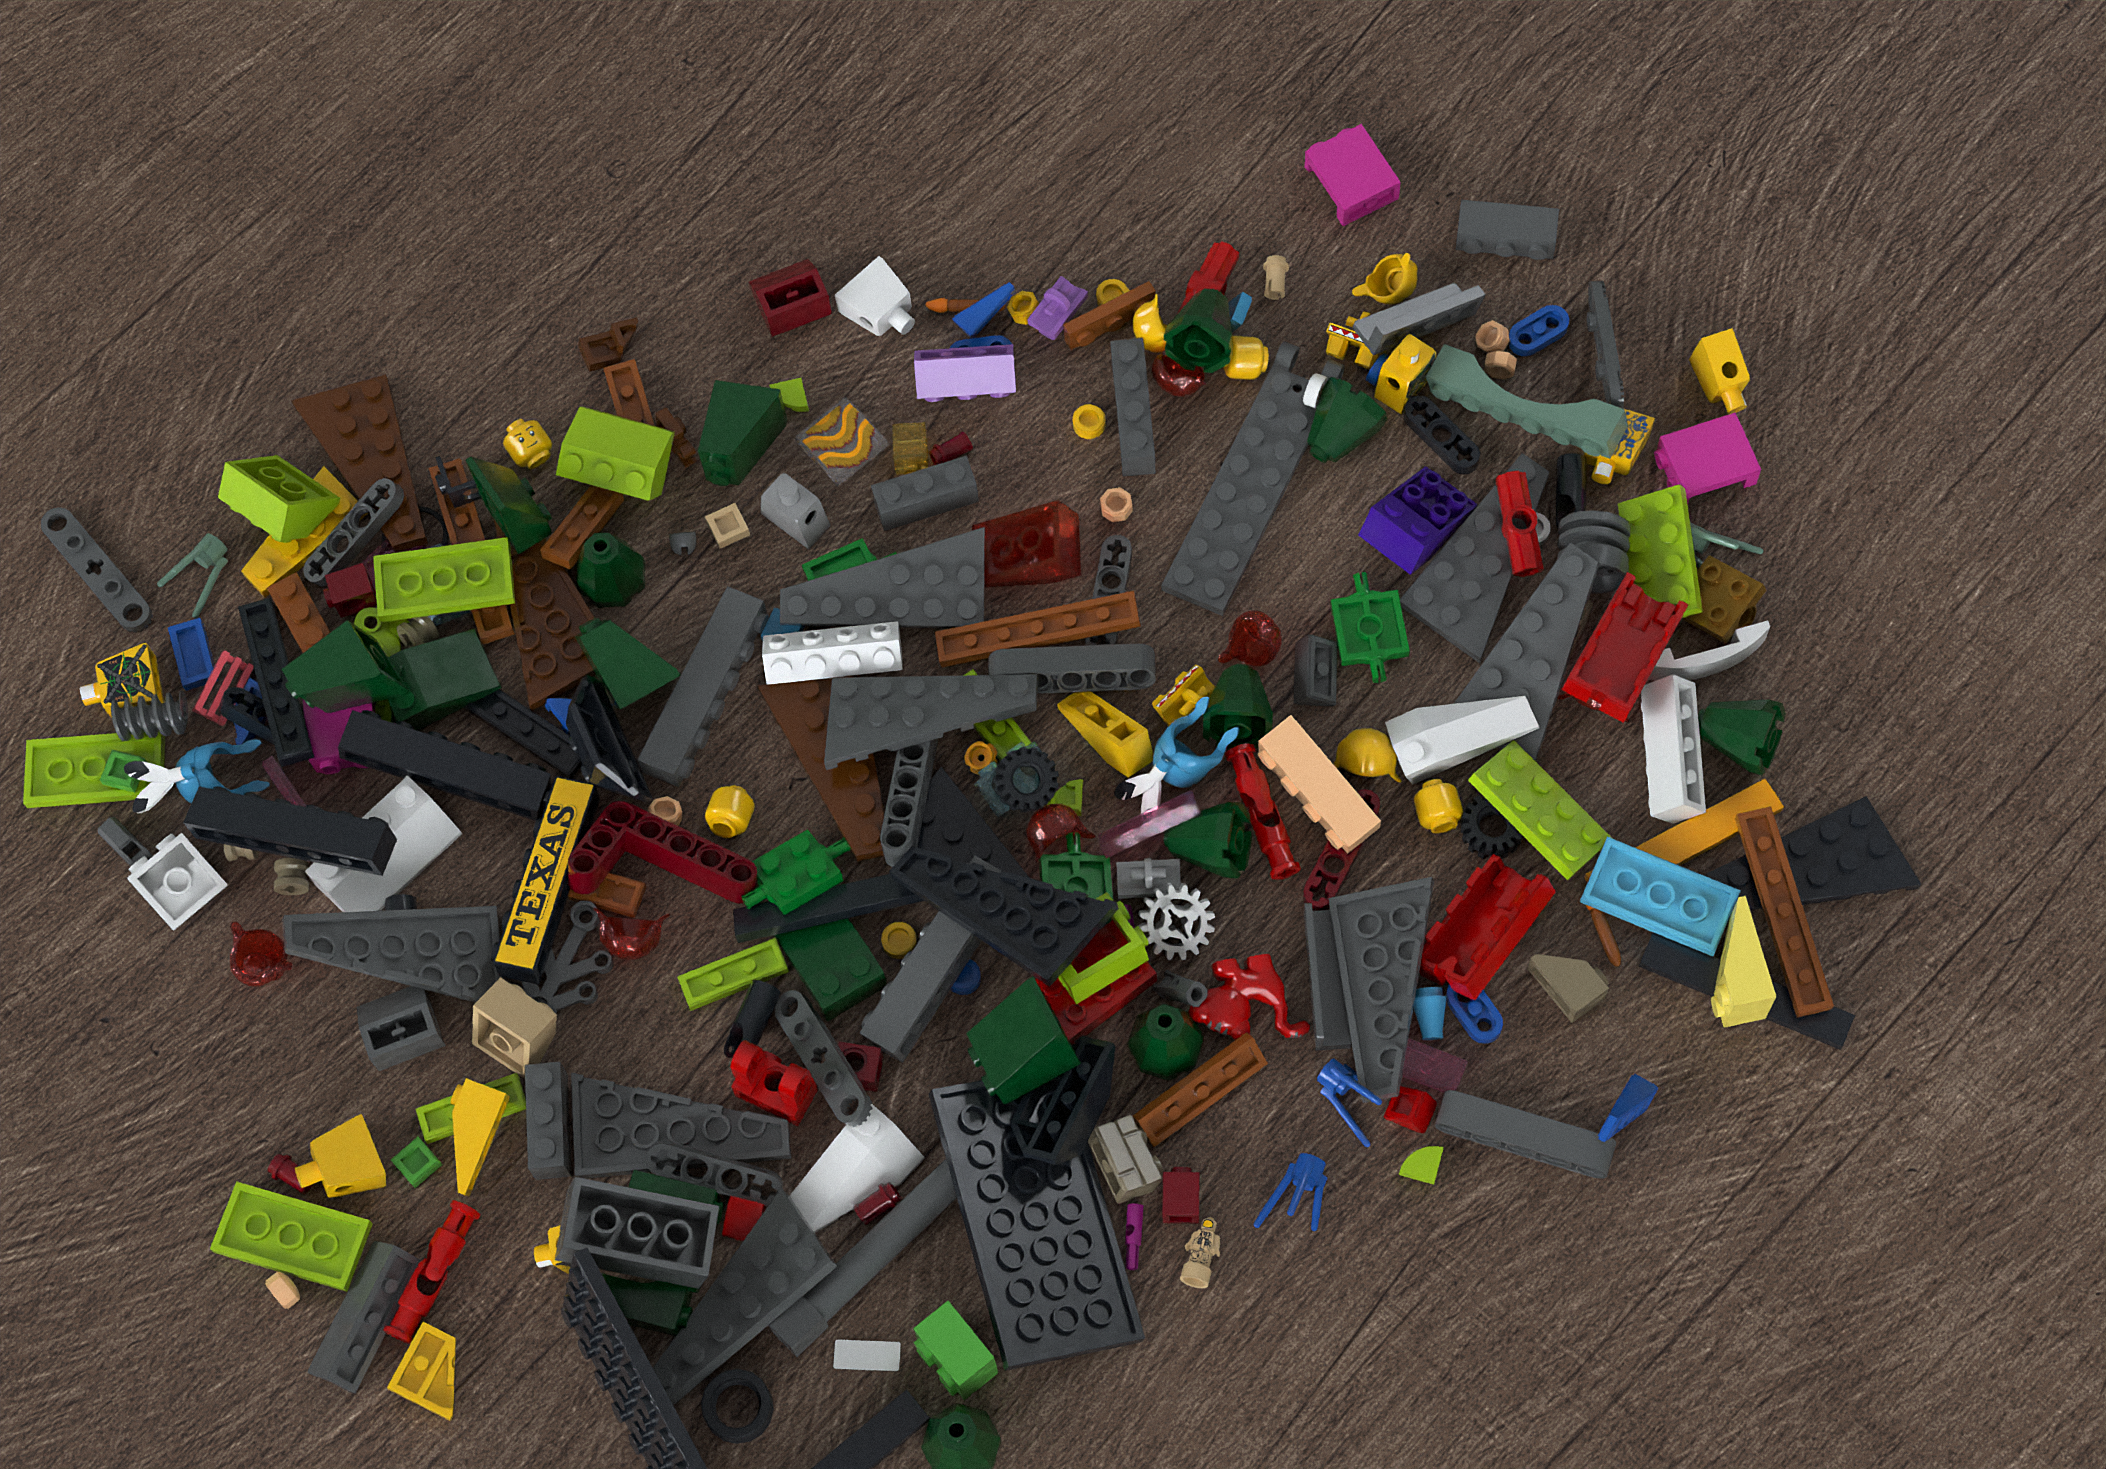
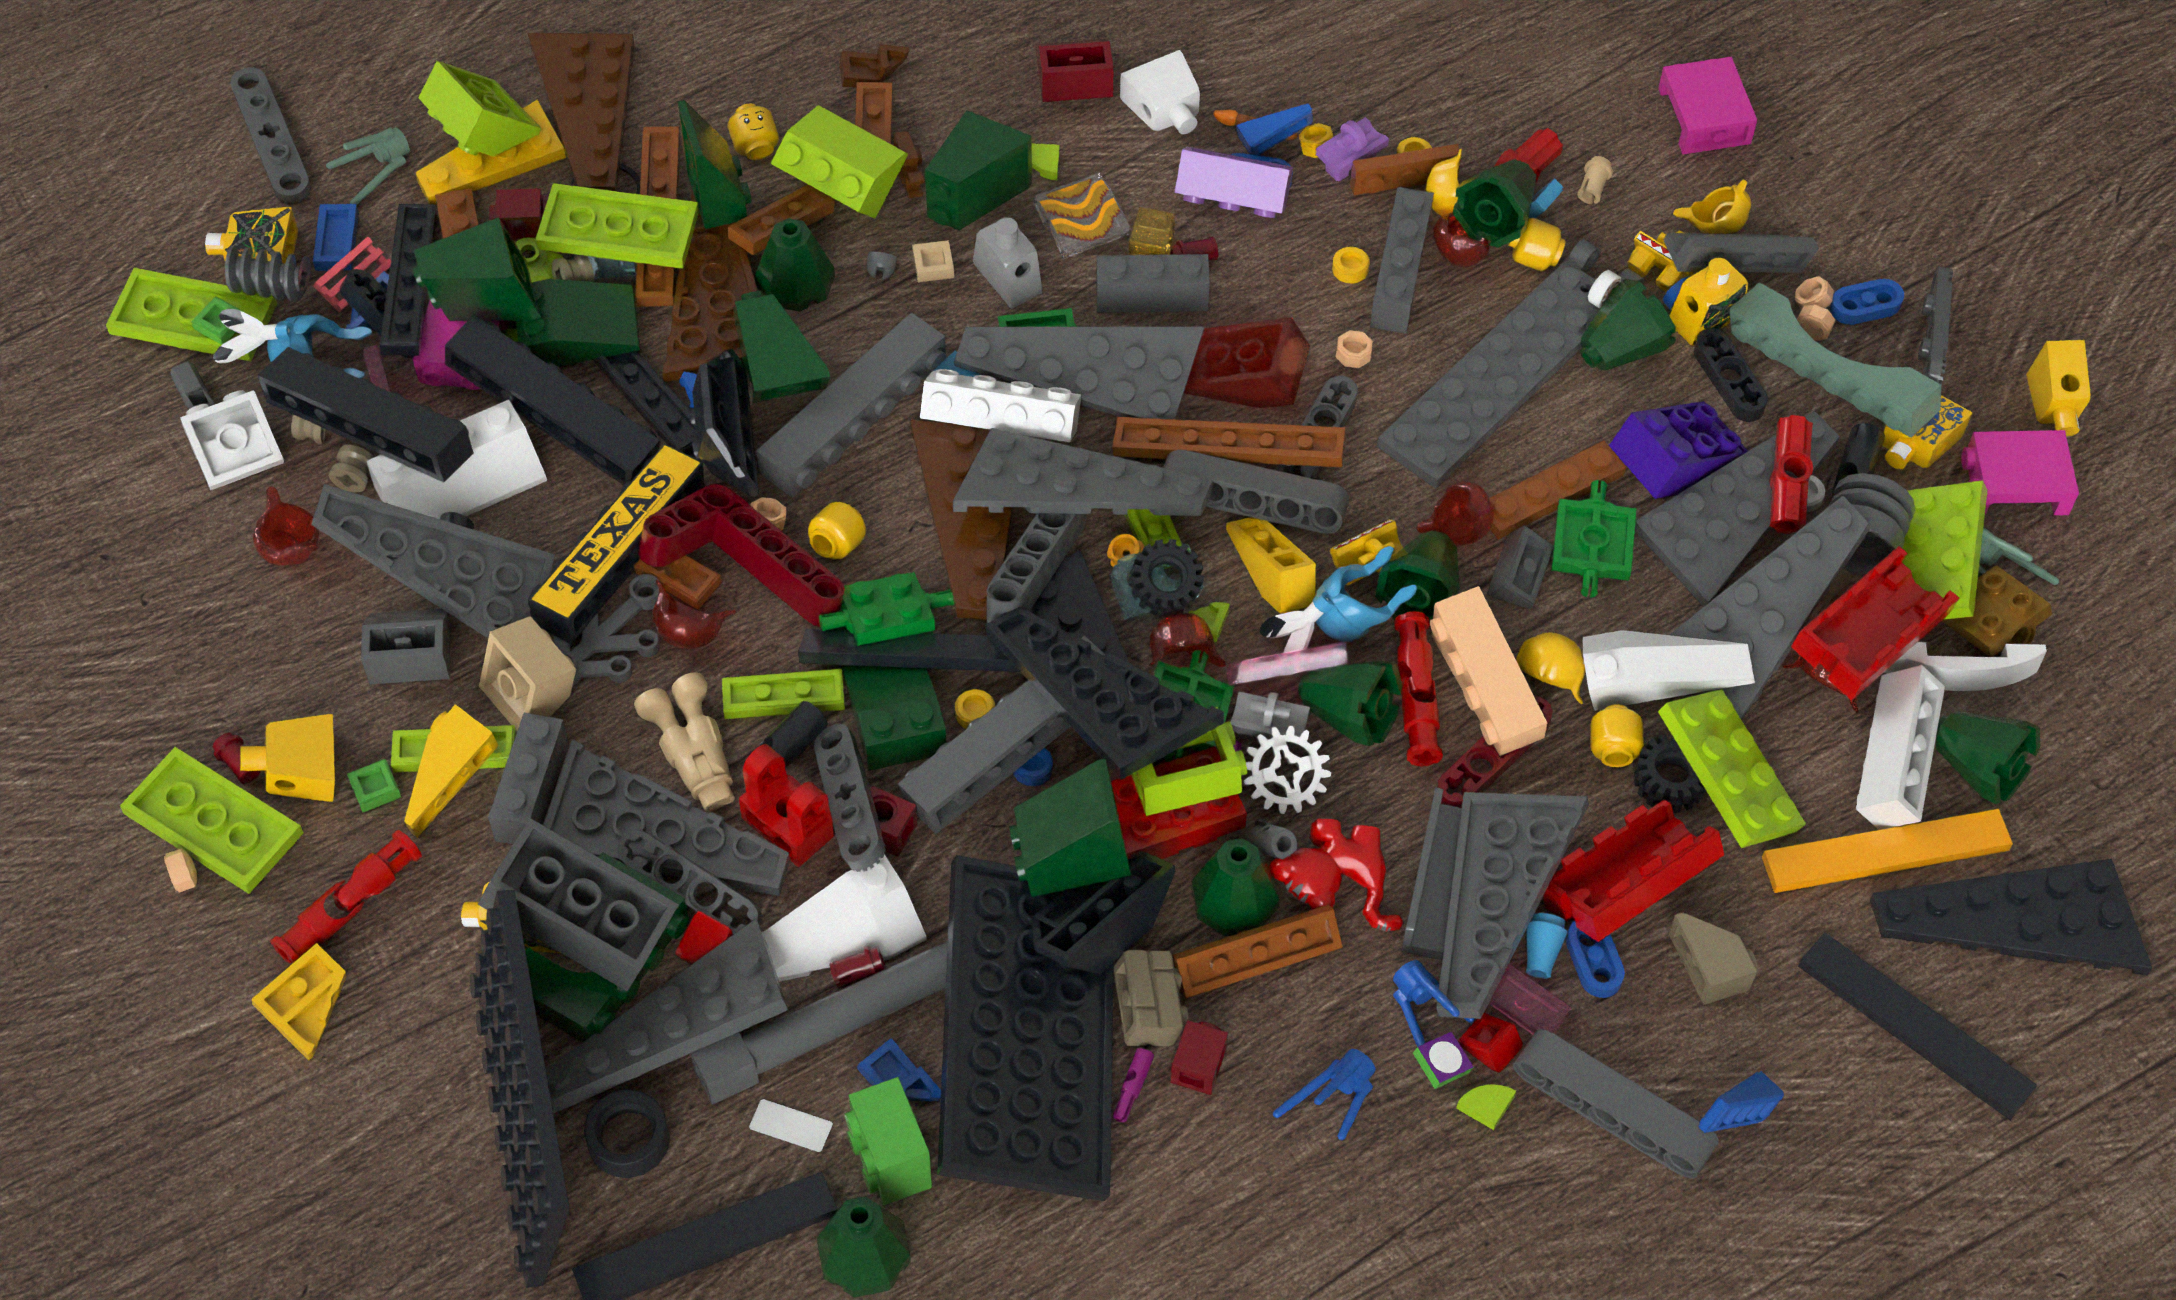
camera: 10 degrees right, 10 degrees down
(350, 528) = (541, 161): dark grey beam -> none
(363, 1315) = (247, 930): dark grey panel -> none
(455, 493) = (661, 149): black bracket -> none
(674, 1050) = (690, 749): none -> tan piece
(938, 1286) = (891, 1062): none -> blue slope
(1203, 1246) = (1209, 1116): tan piece -> none
(1321, 586) = (1564, 480): none -> dark orange plate
(1377, 1138) = (1443, 1060): none -> tile
(1507, 229) = (1860, 196): dark grey brick -> none
(1606, 936) = (1767, 909): dark orange piece -> none
(1660, 896) = (1843, 895): medium azure tile -> none
(1743, 979) = (1918, 1003): light yellow slope -> none
(1784, 912) = (1983, 949): dark orange plate -> none

